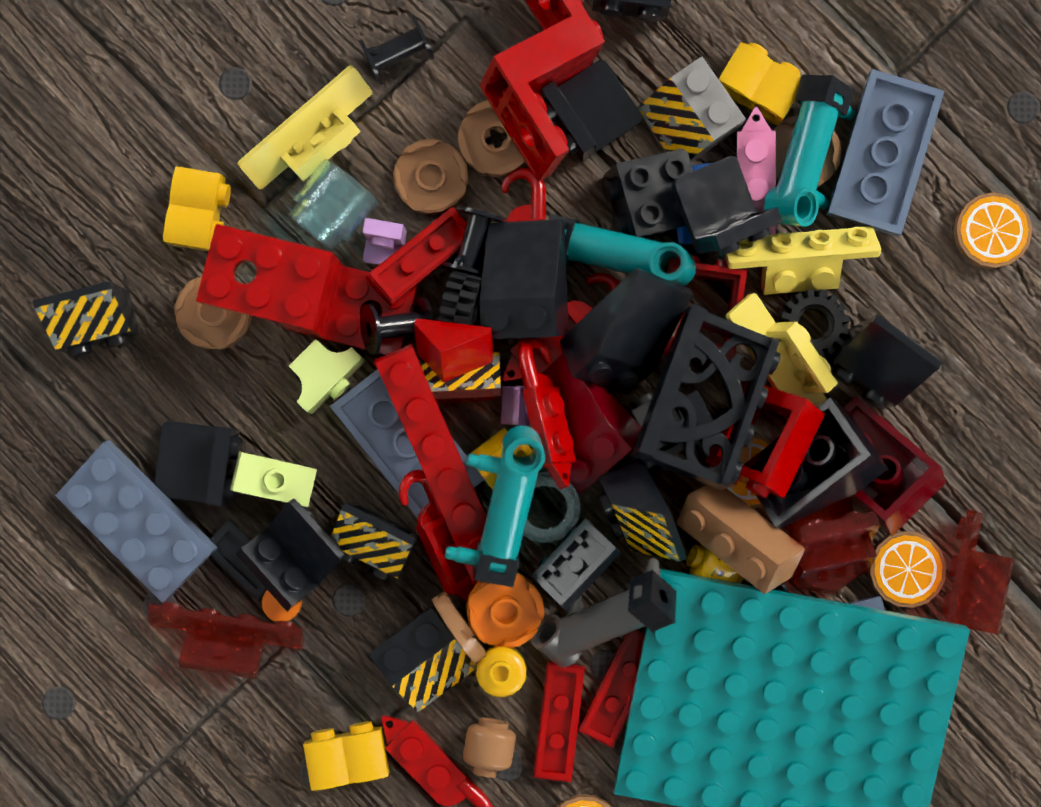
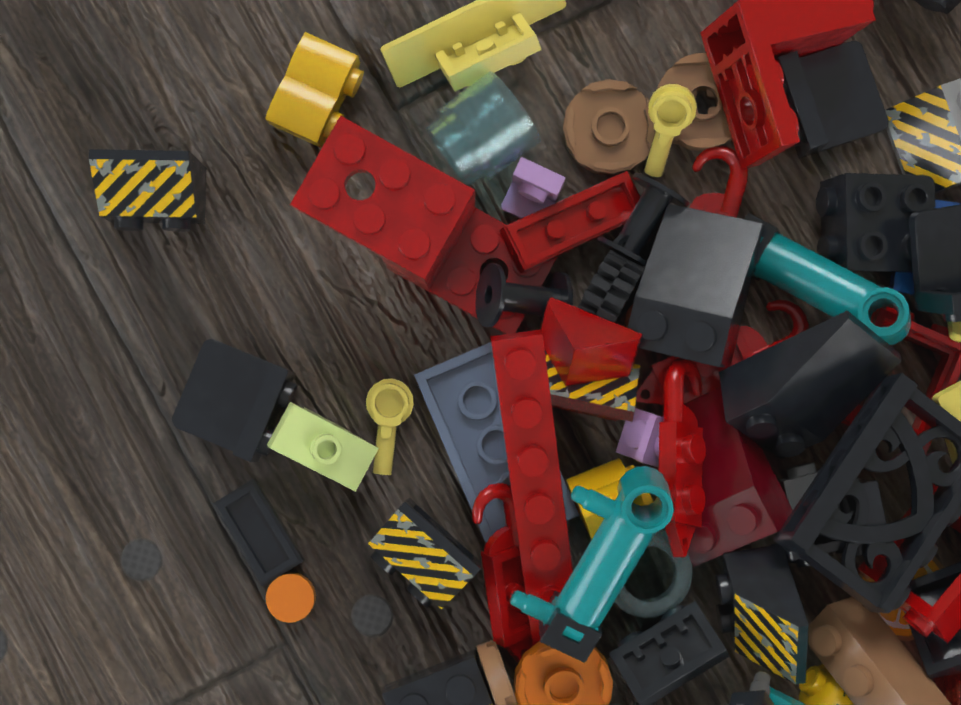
camera: 15 degrees right, 0 degrees up
(136, 521) = (140, 450): sand blue plate -> none
(207, 325) = (288, 233): medium nougat tile -> none
(224, 642) = (206, 627): clear red bracket -> none
(291, 555) = (319, 544): black bracket -> none
(317, 435) = (389, 405): none -> light yellow plate
(324, 374) = (417, 332): yellowish green brick -> none
(472, 151) = (670, 110): none -> light yellow plate

